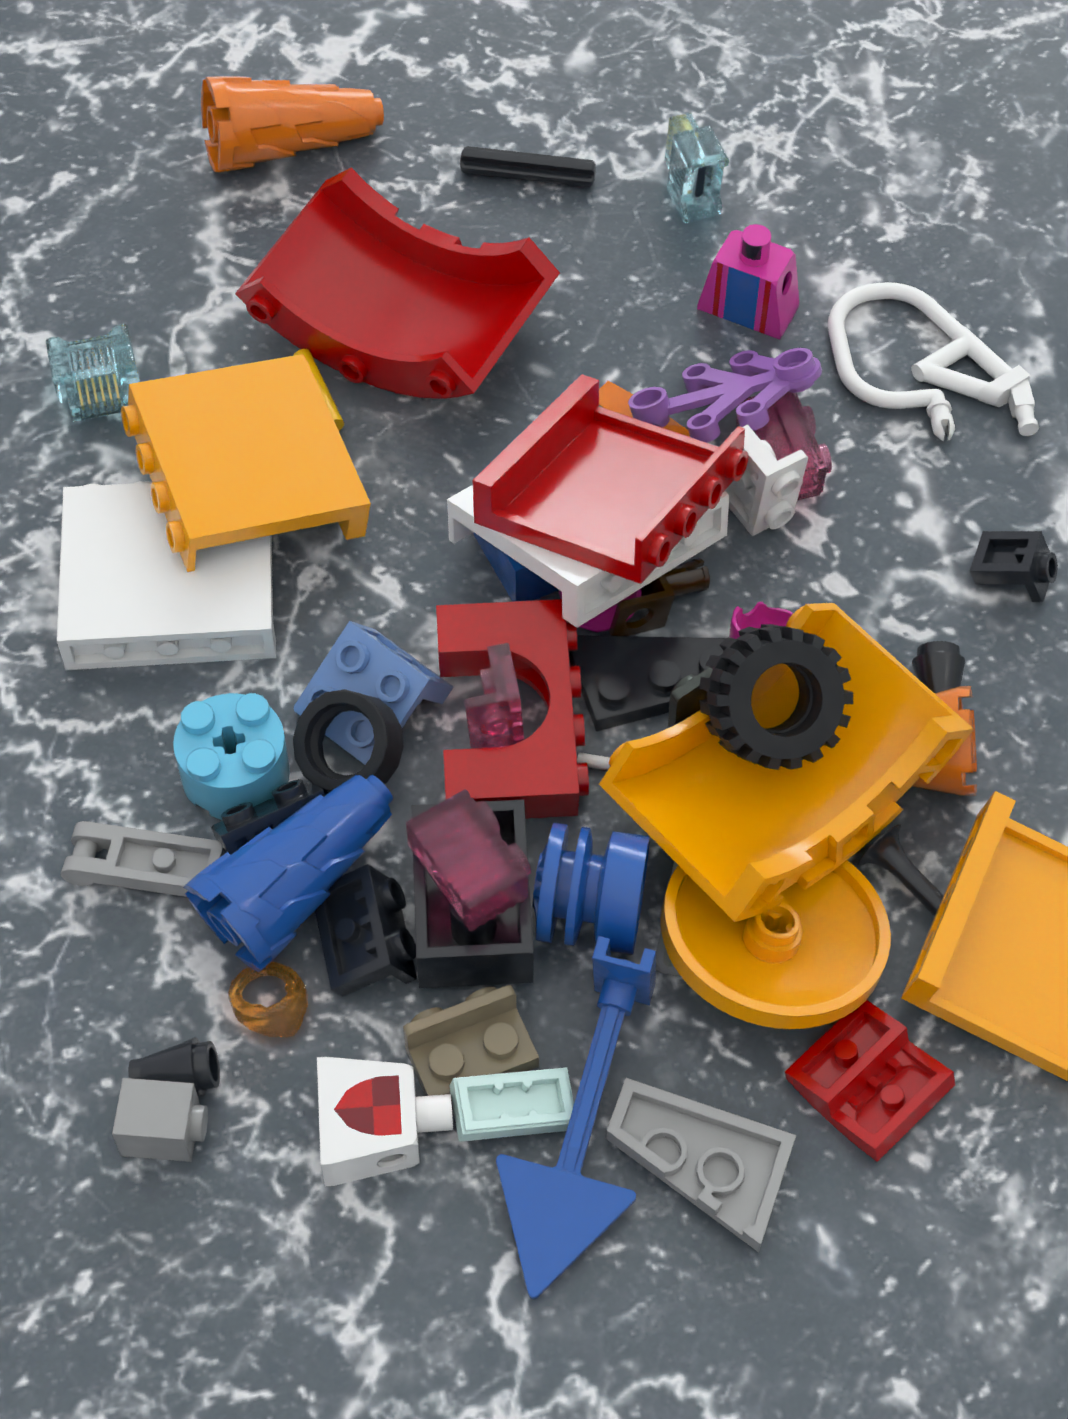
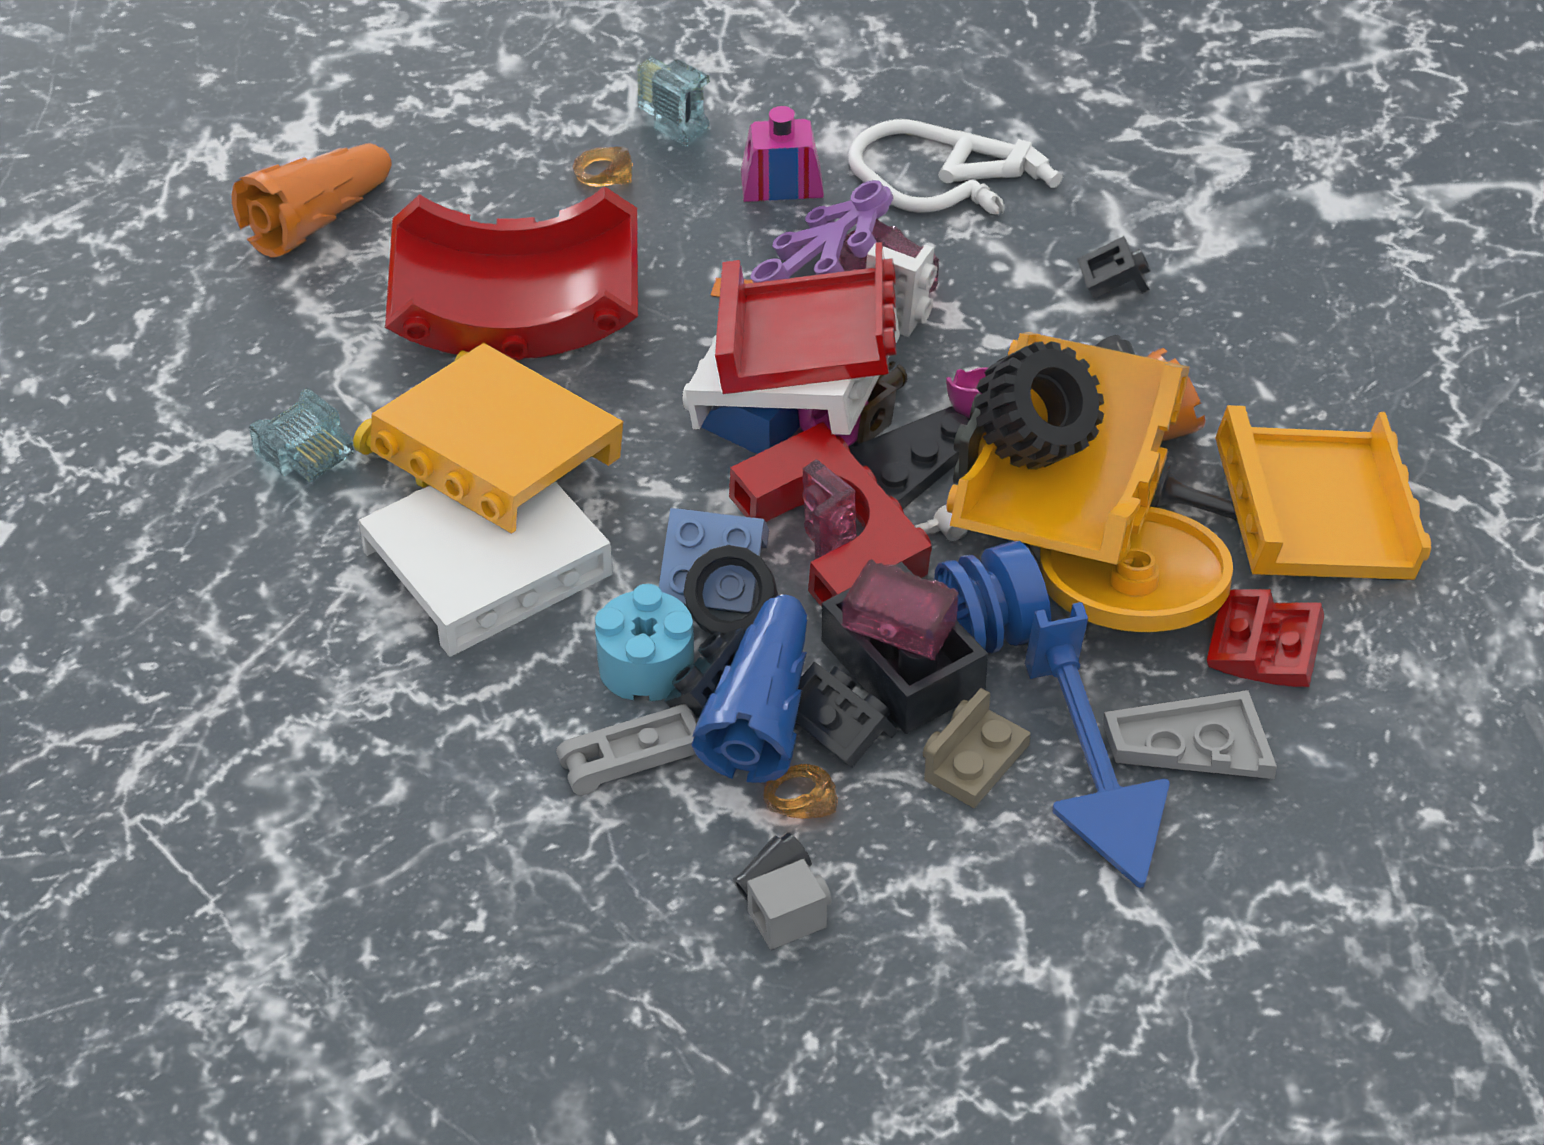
camera: 30 degrees left, 10 degrees down
(372, 1118) = (942, 825): white torso -> none
(511, 1104) = (1036, 769): light aqua plate -> none
(528, 166) = (534, 152): black axle -> none
(590, 222) = (616, 173): none -> clear orange piece

